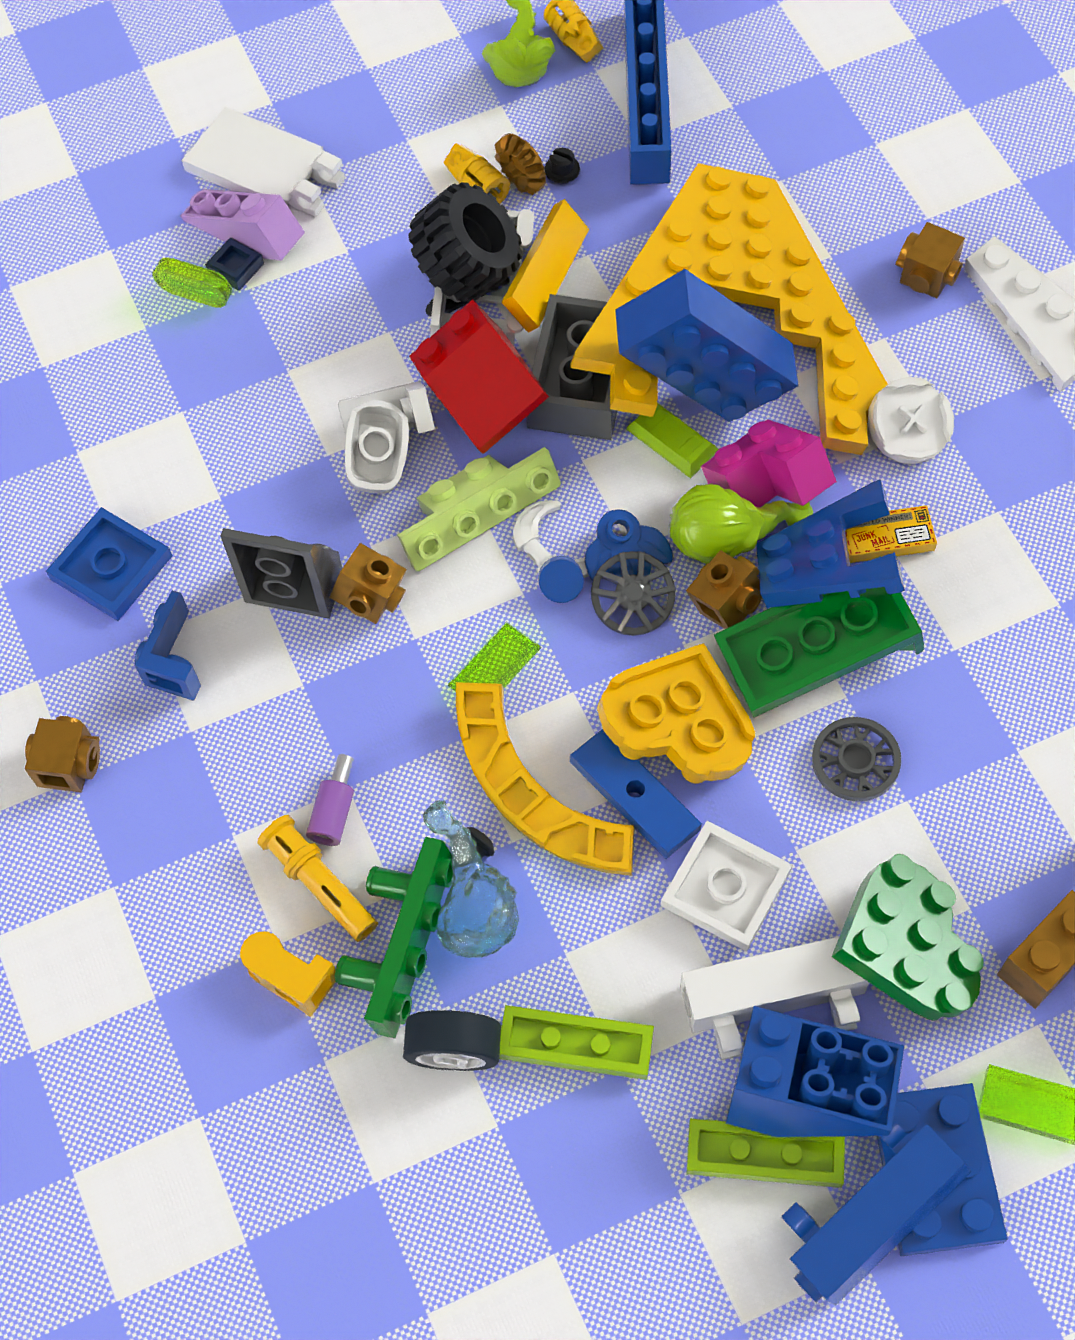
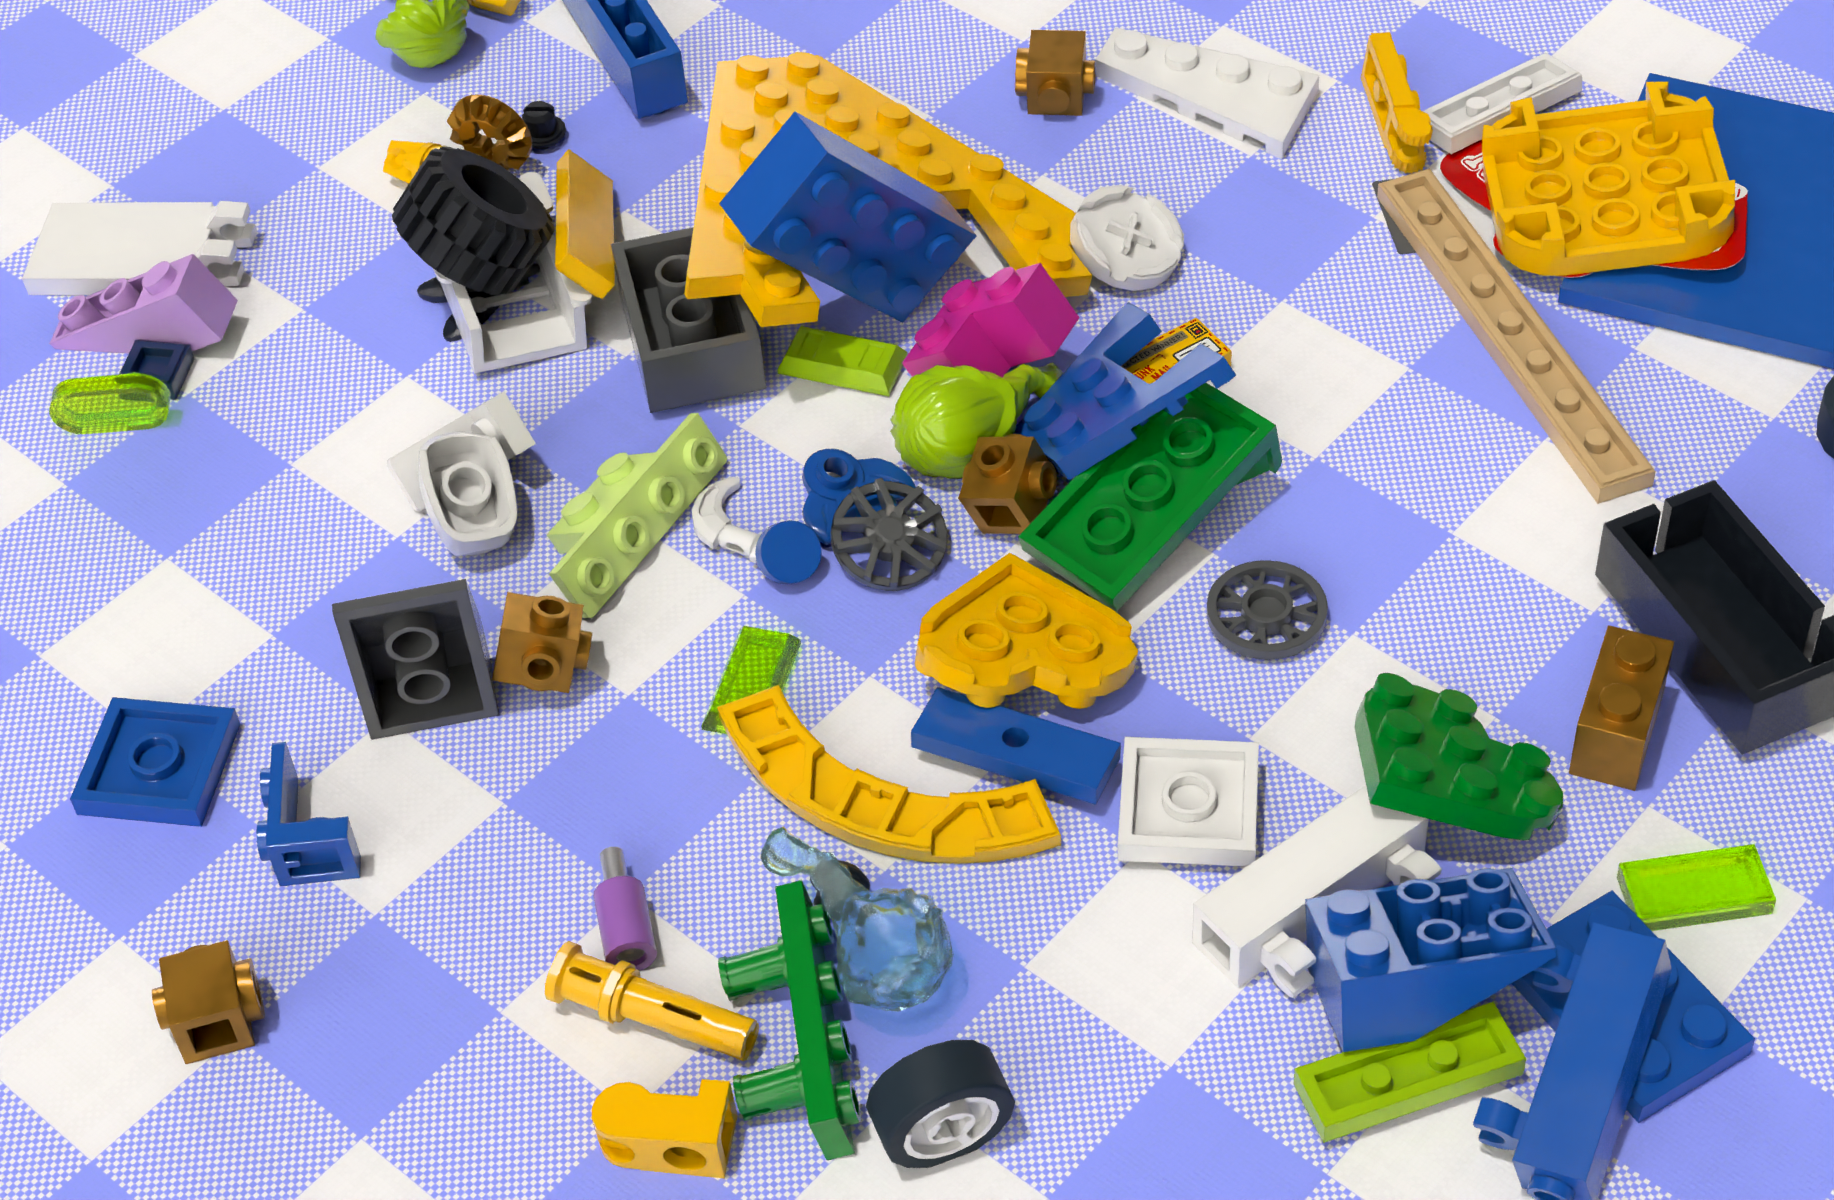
camera: 25 degrees left, 15 degrees down
(478, 376) = (565, 360): red slope -> none
(576, 1042) = (1102, 1049): lime plate -> none

